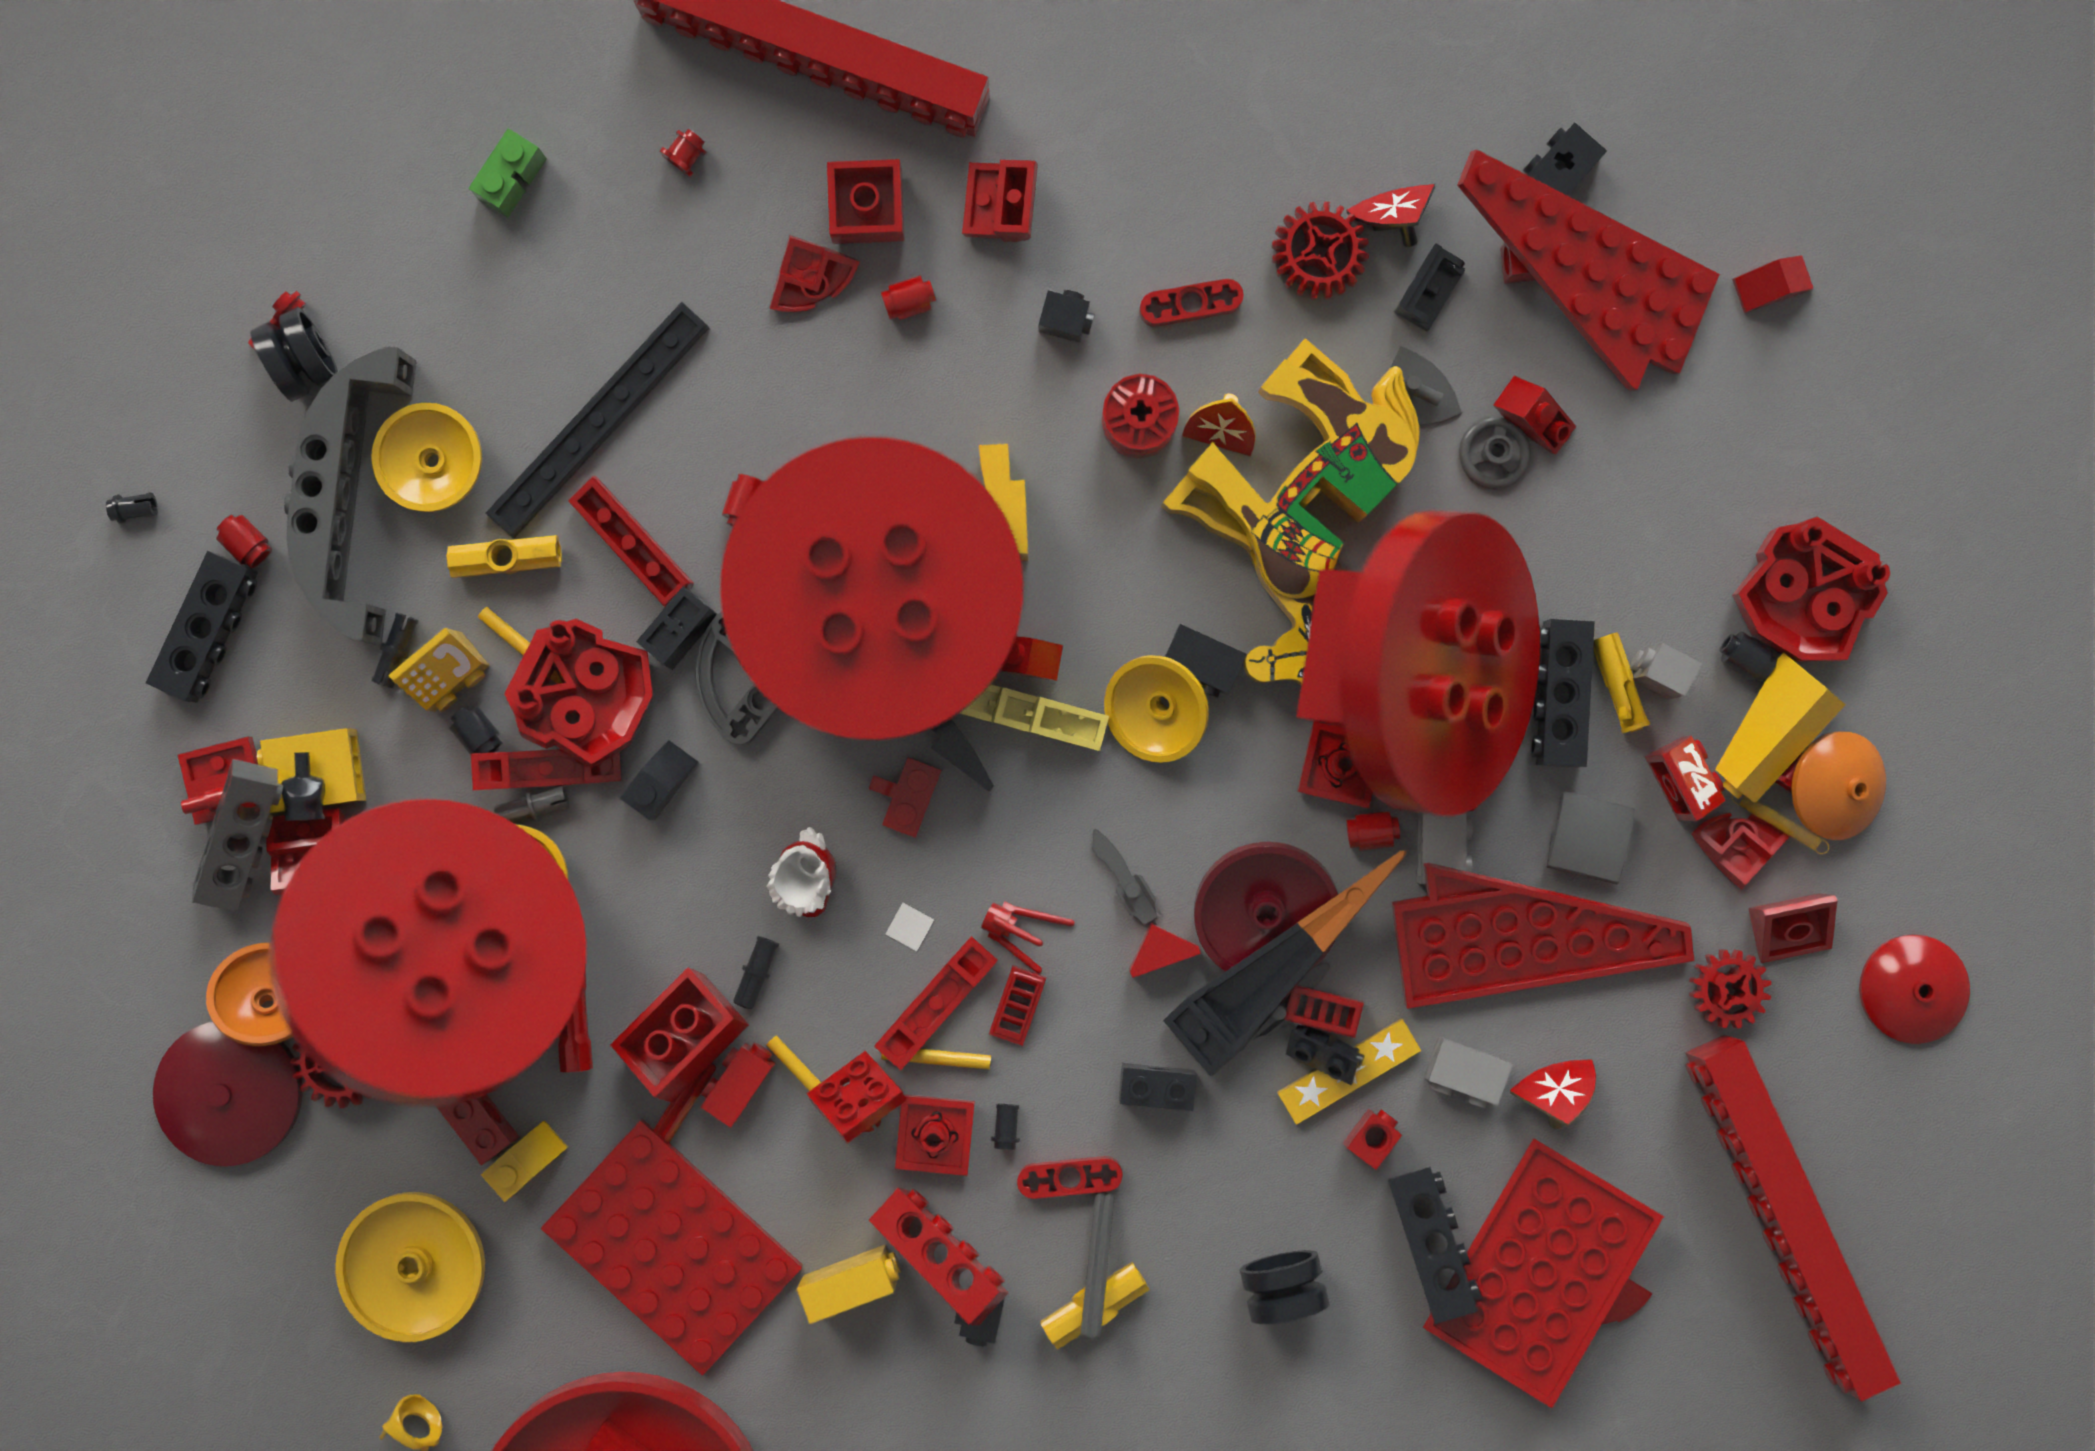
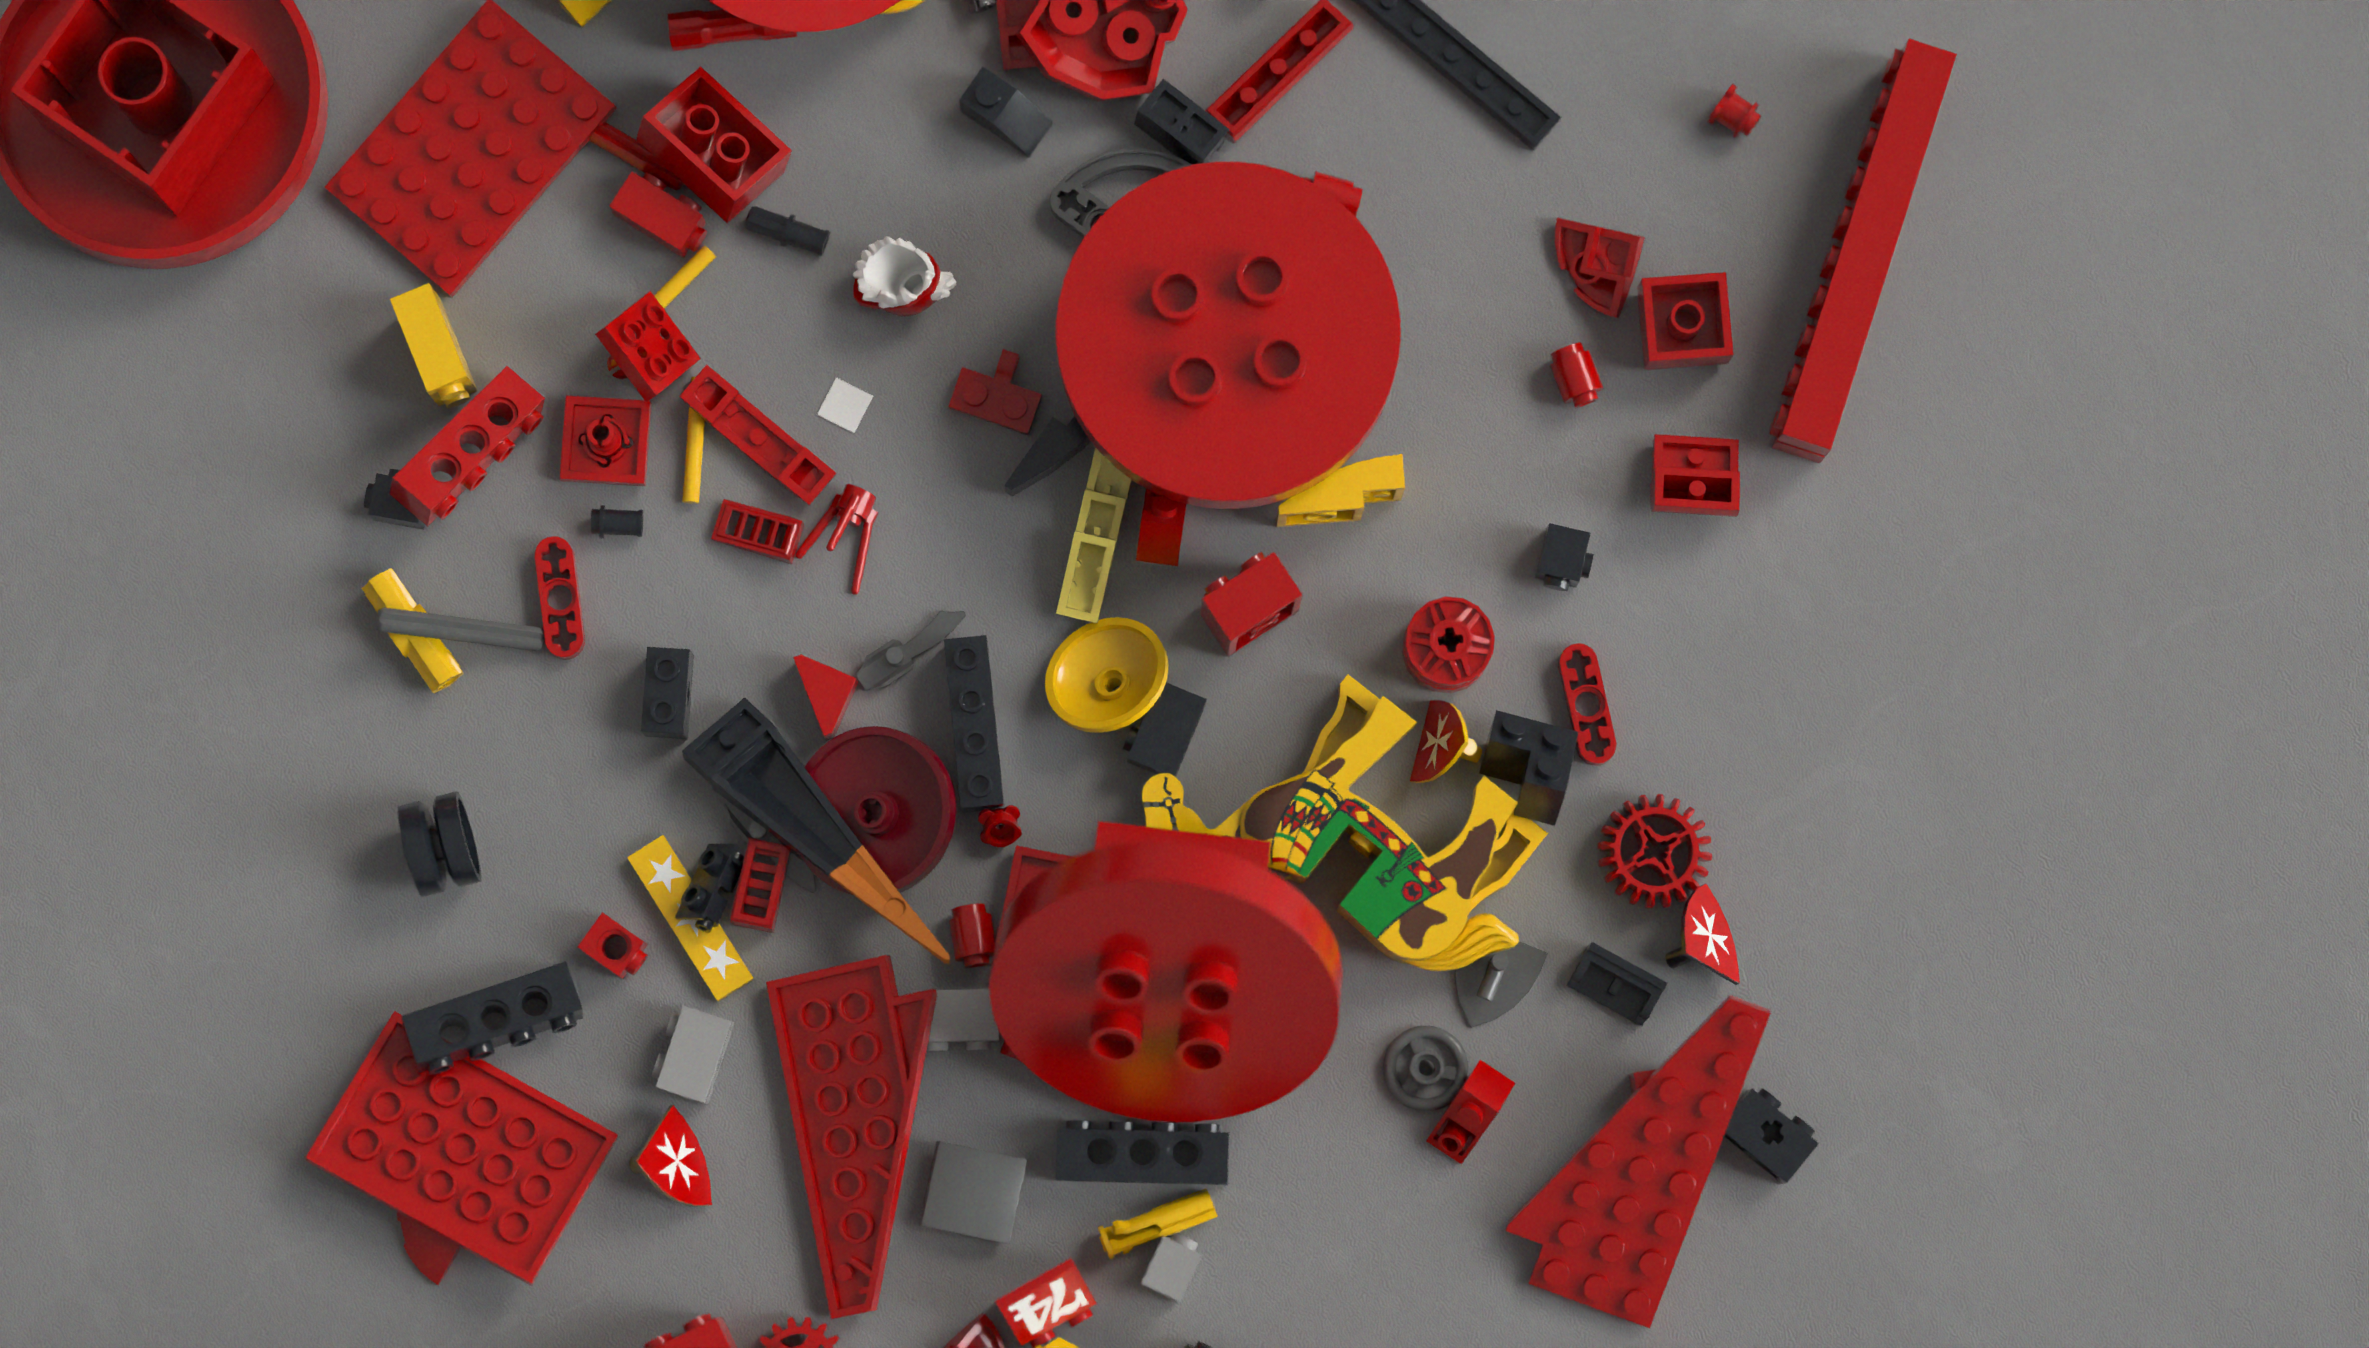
camera: 85 degrees right, 5 degrees down
(1101, 581) = (1250, 602): none -> red brick
(1193, 824) = (974, 723): none -> black brick
(1238, 346) = (1535, 758): none -> black brick
(1280, 804) = (1003, 834): none -> red plate

